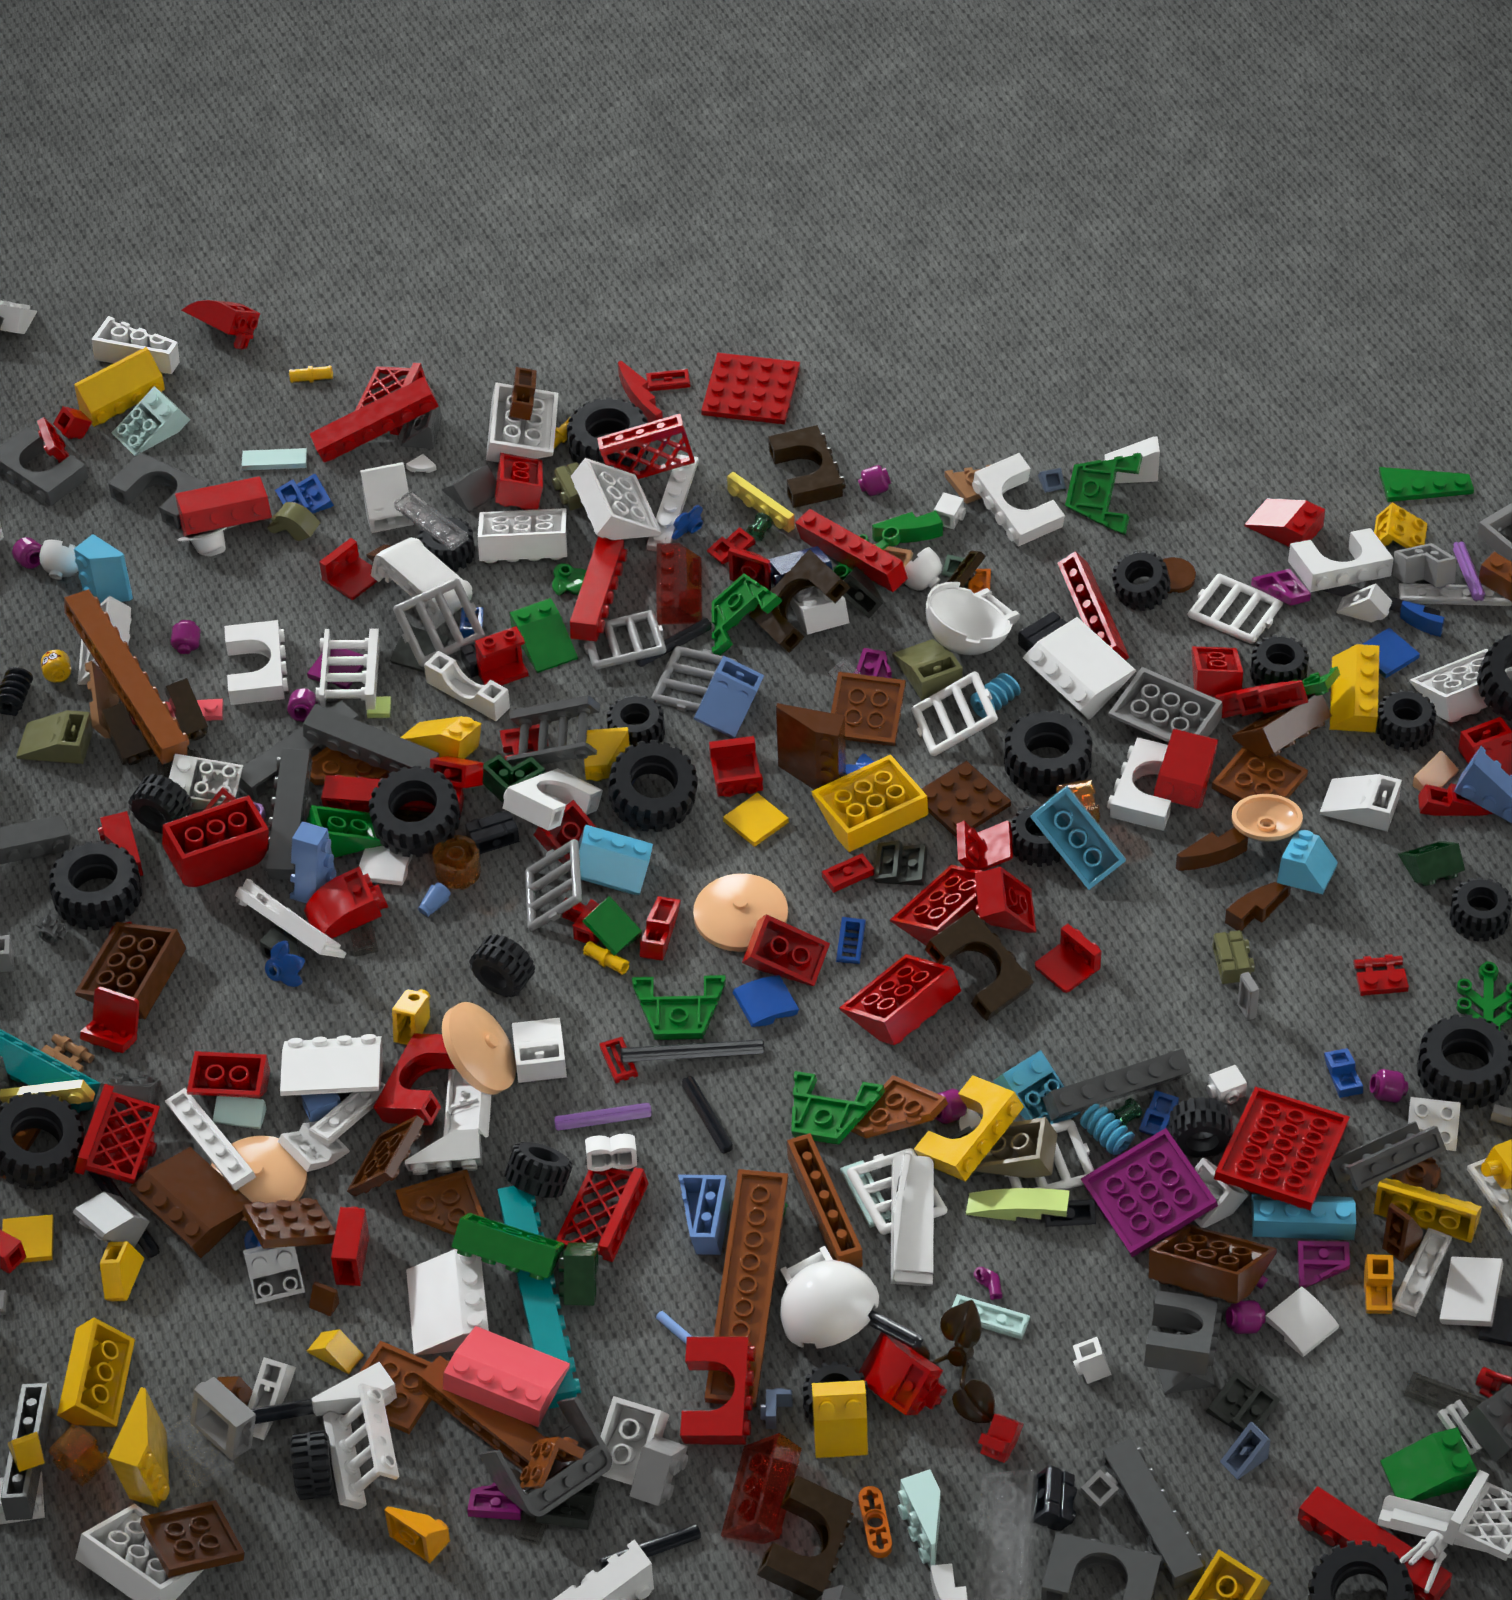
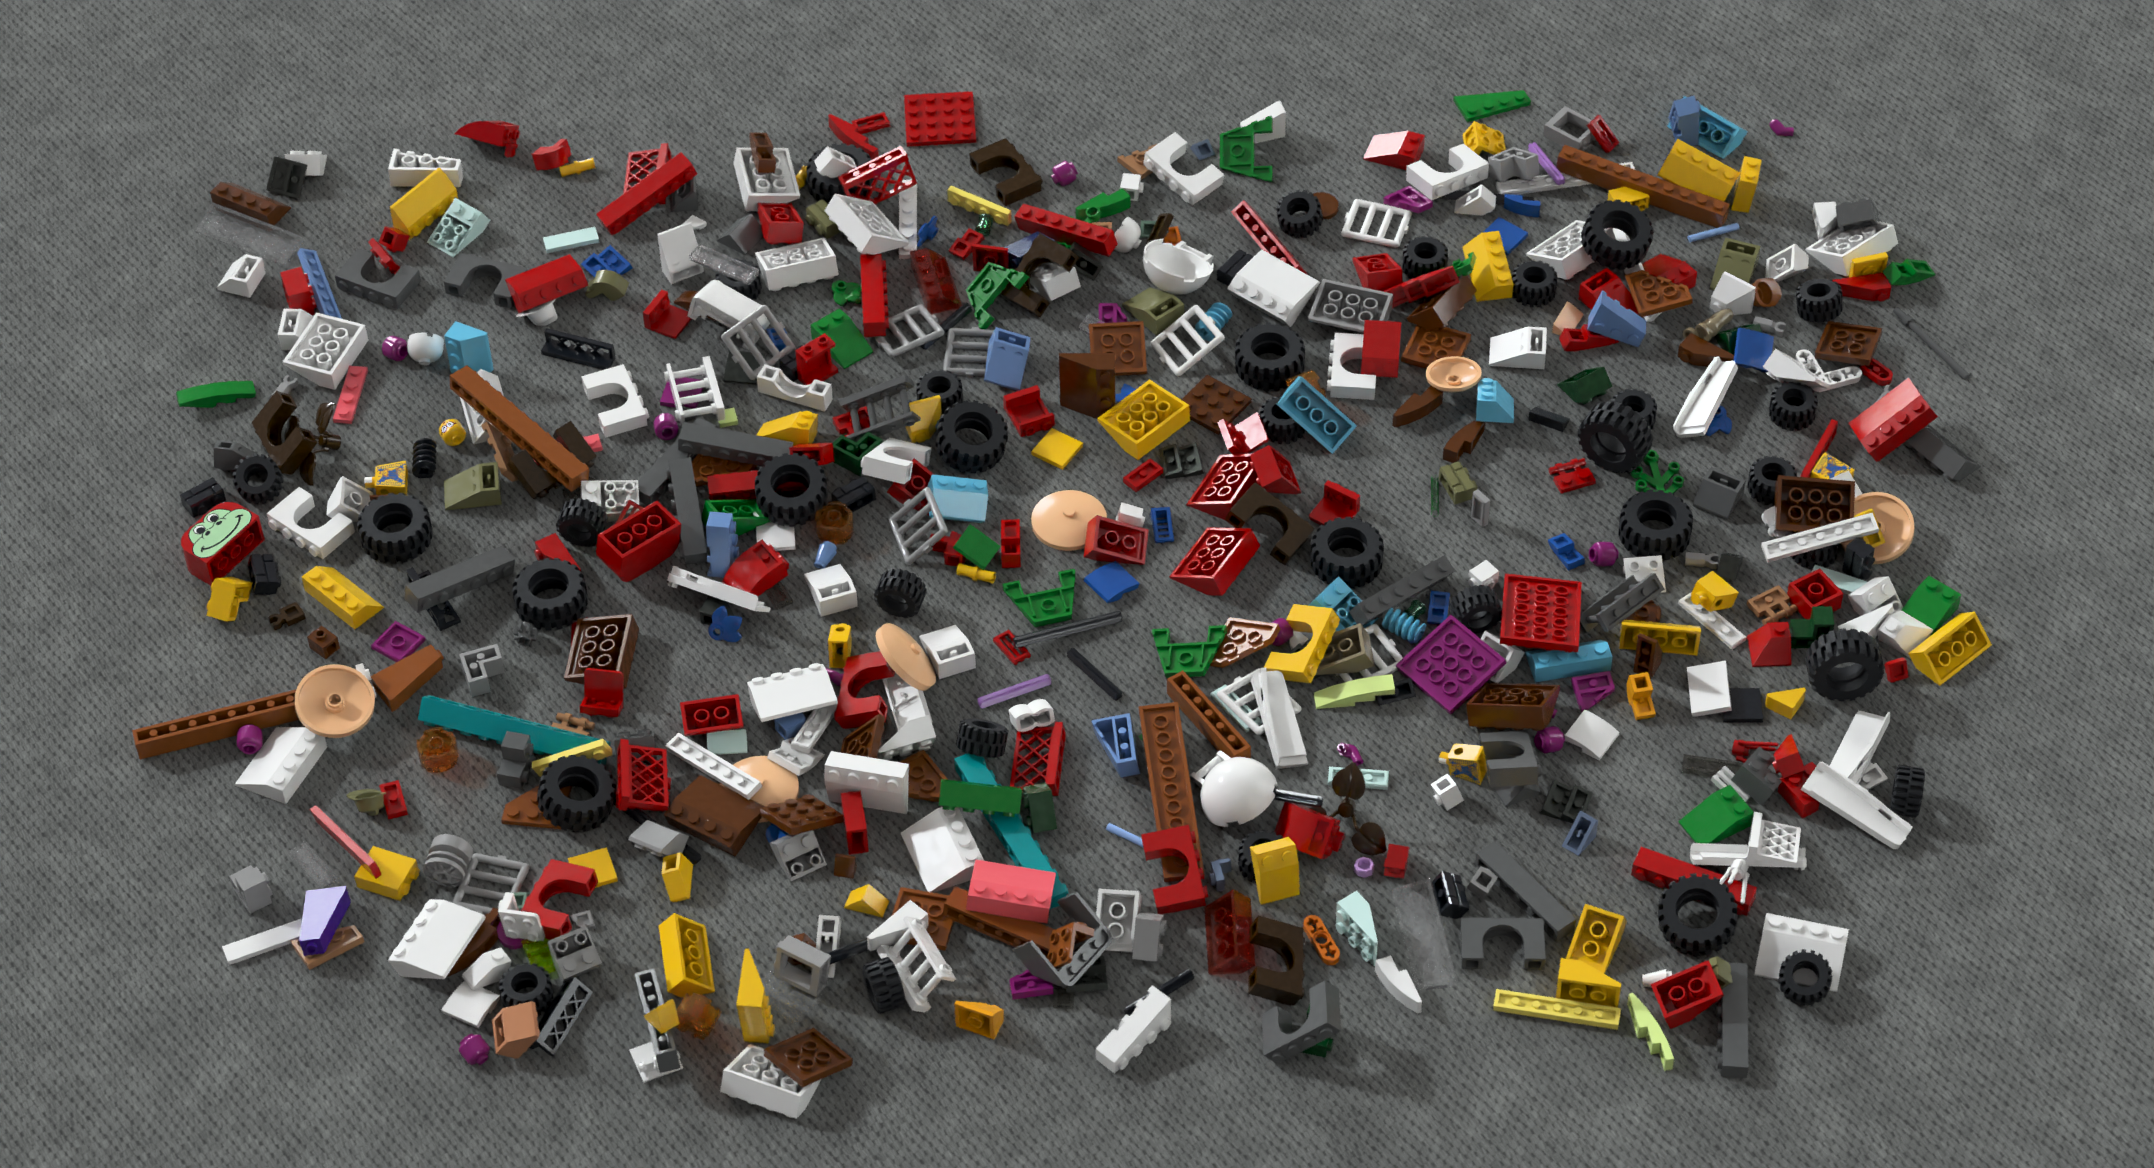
camera: 15 degrees left, 0 degrees up
(185, 636) = (550, 390): magenta head -> none
(234, 594) = (578, 353): none -> black fence
(286, 356) = (552, 157): none -> red brick
(388, 1199) = (880, 781): none -> white slope
(391, 1052) = (834, 676): none -> magenta arm
(426, 944) = (831, 589): none -> white slope
(598, 420) = (833, 163): none -> white slope
(813, 921) = (1130, 515): none -> white brick
(958, 1436) = (1364, 867): none -> lavender tile
(1064, 996) = (1347, 534): none -> black tyre
(1127, 1325) = (1466, 762): none -> yellow torso
(1197, 970) = (1437, 493): none -> green piece
(1373, 896) = (1548, 419): none -> black slope
(1421, 1272) = (1668, 682): white tile -> none
(1443, 937) = (1609, 421): none -> black tyre

